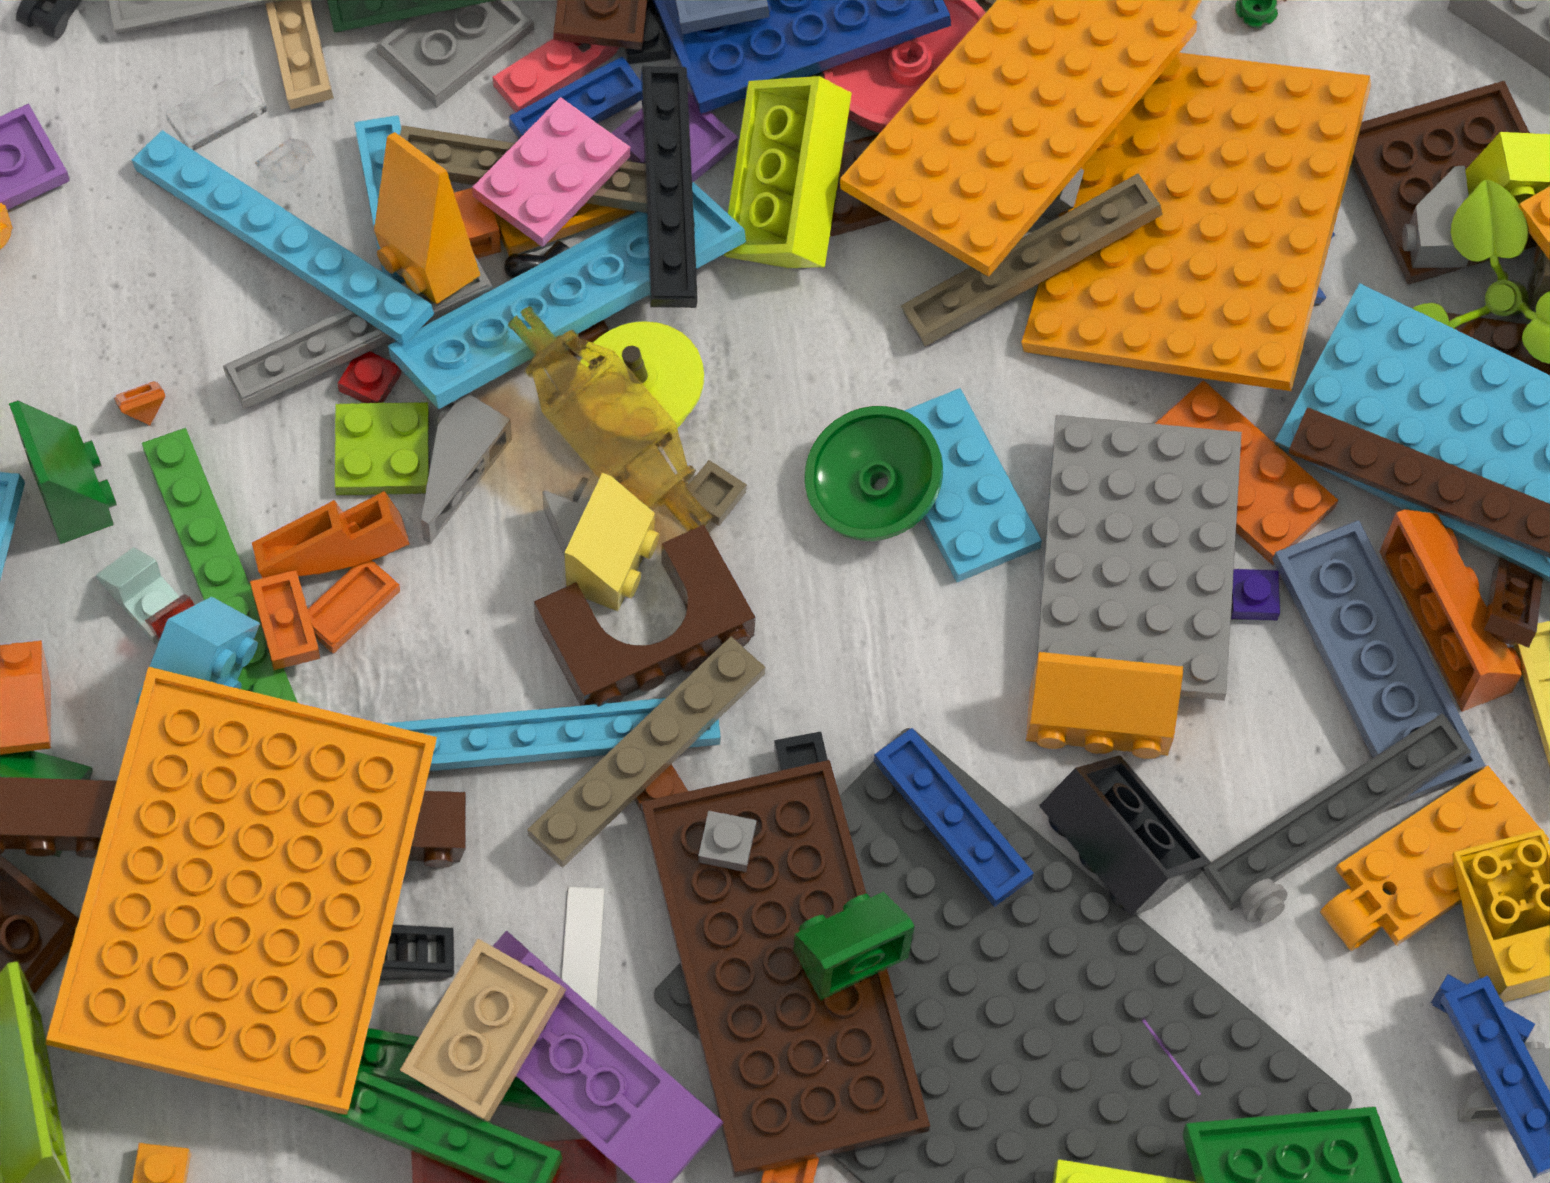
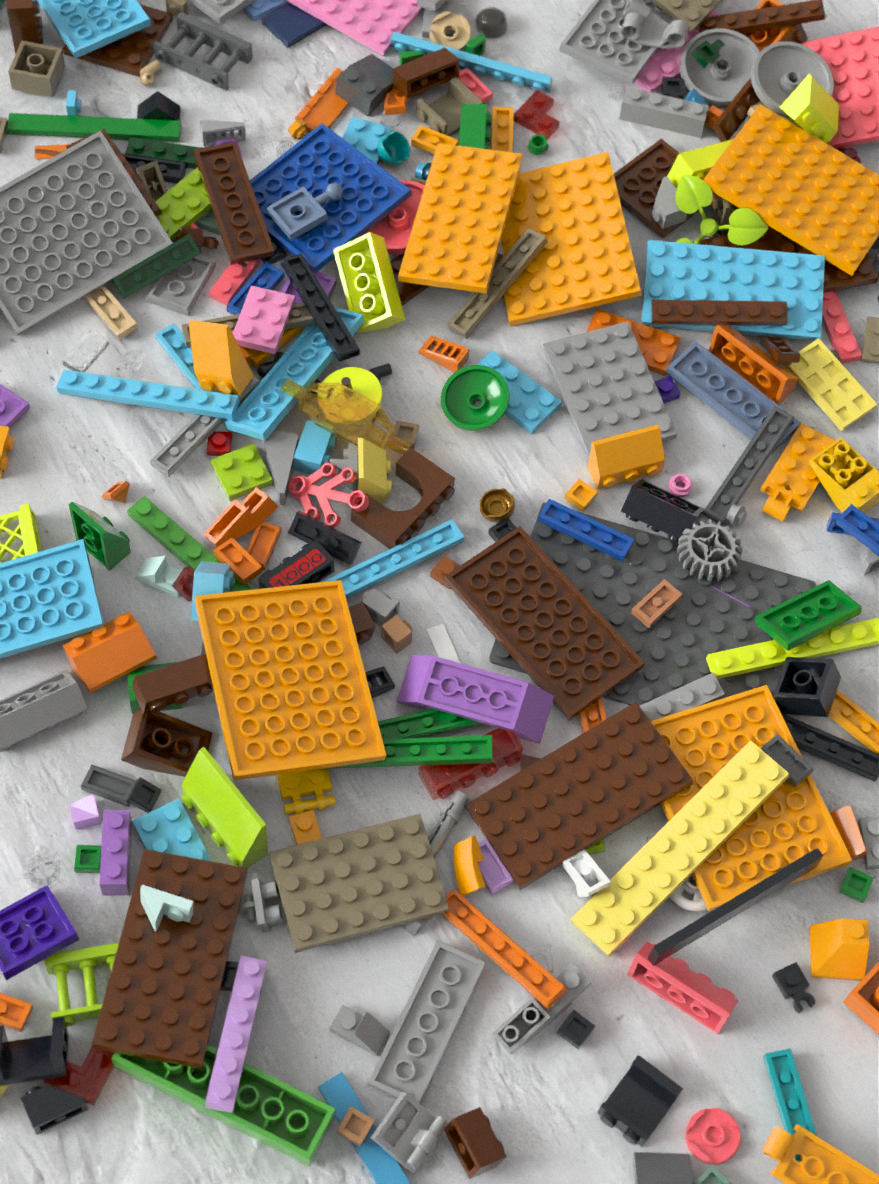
camera: 25 degrees left, 5 degrees down
(199, 1099) = (305, 784): none -> yellow plate
(384, 683) = (305, 567): none -> brick
(465, 636) = (332, 540): none -> black plate
(472, 521) = (326, 492): none -> coral plant
(483, 1029) = (429, 697): tan plate -> none
(498, 811) = (380, 606): none -> light grey brick
(505, 875) = (397, 633): none -> medium nougat plate
(527, 459) = (313, 448): none -> medium azure brick
(646, 752) = (435, 555): dark tan plate -> none
(720, 352) = (381, 371): none -> black arm
(727, 841) = (493, 576): light grey plate -> none
(813, 700) = (497, 505): none -> pearl gold hair
(853, 943) = (574, 595): green slope -> none
(874, 390) = (453, 349): none -> orange slope
(984, 742) = (581, 495): none -> light orange plate
(1014, 1017) = (656, 603): none -> nougat plate
(1184, 969) = (723, 556): none -> light grey gear
(1186, 785) = (683, 480): none -> bright pink plate

